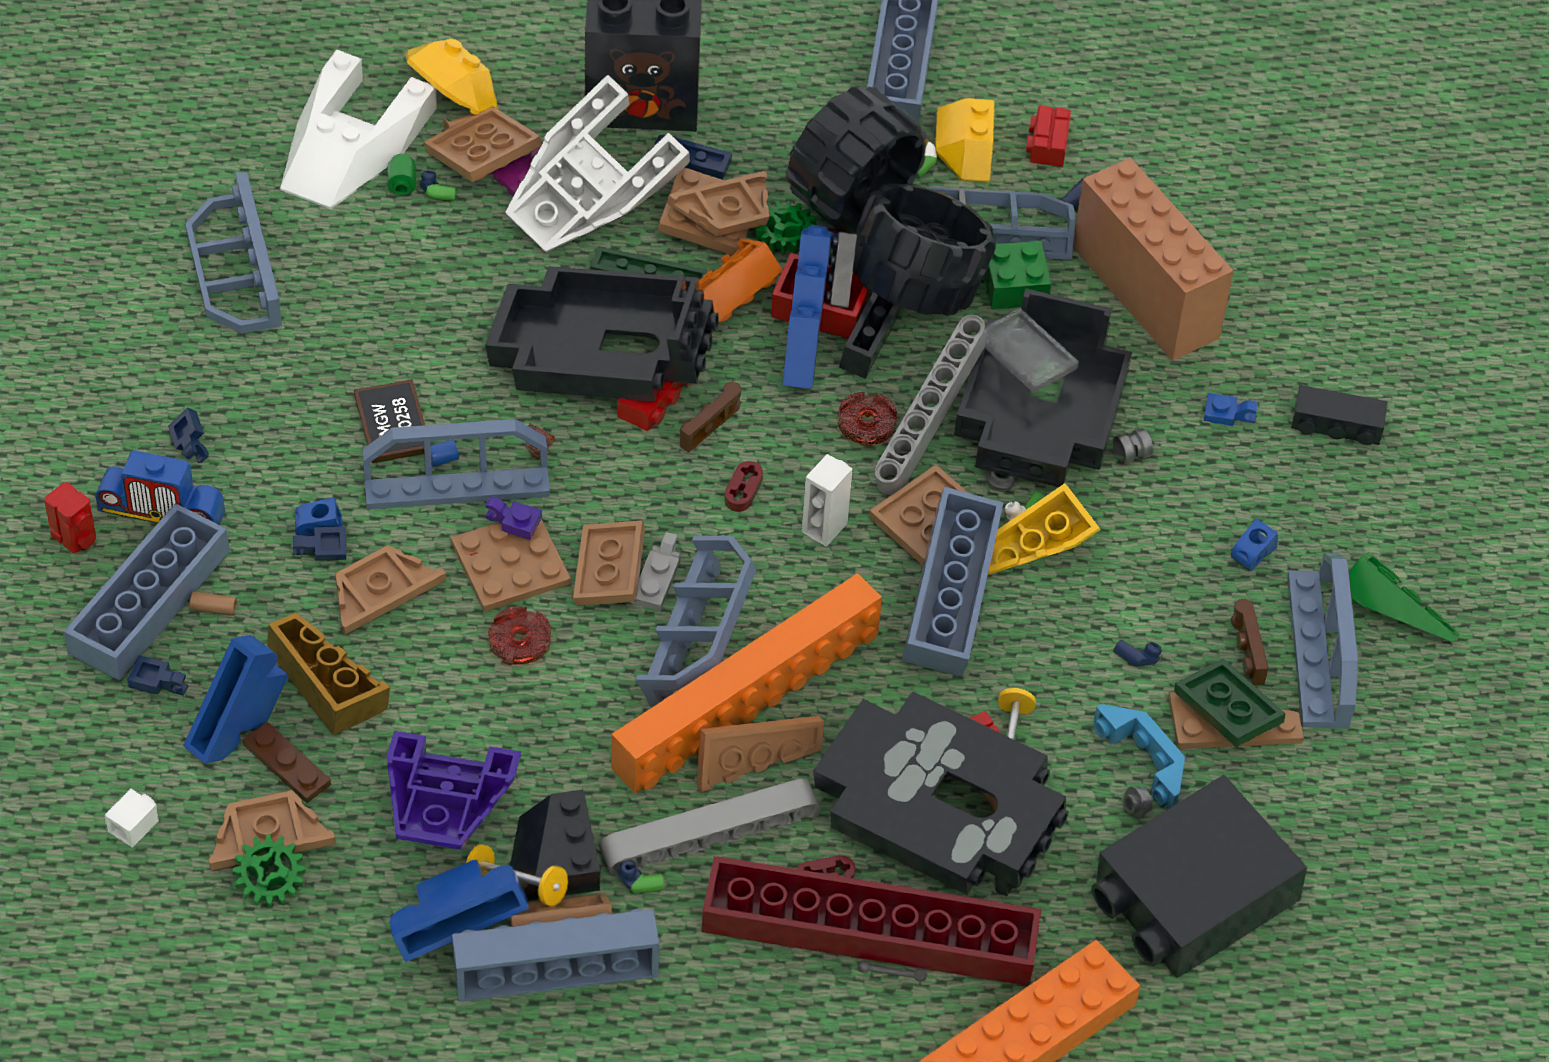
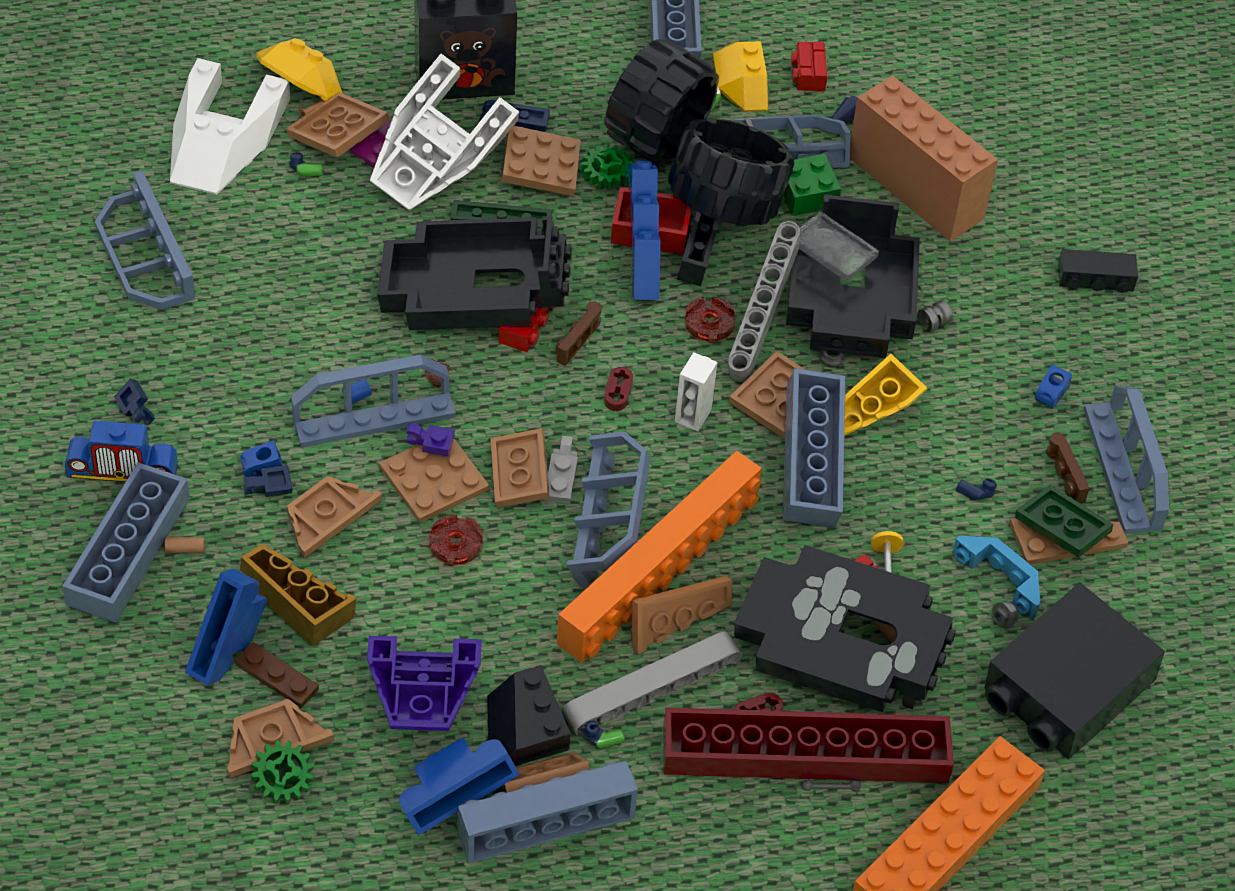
camera: 10 degrees left, 0 degrees up
(70, 518) = (47, 486): red brick -> none
(132, 817) = (152, 741): white brick -> none
(153, 674) = (146, 613): dark blue plate -> none
(390, 407) = (301, 361): black tile -> none
(401, 174) = (273, 158): green brick -> none
(551, 885) = (533, 751): yellow axle -> none
(726, 204) = (556, 153): medium nougat wing -> none
(740, 277) = (582, 210): orange wedge -> none
(841, 270) = (667, 196): piece -> none
(1014, 509) = (851, 381): white arm -> none
(1225, 410) = (1003, 277): blue plate -> none
(1377, 589) = (1169, 416): green wedge -> none

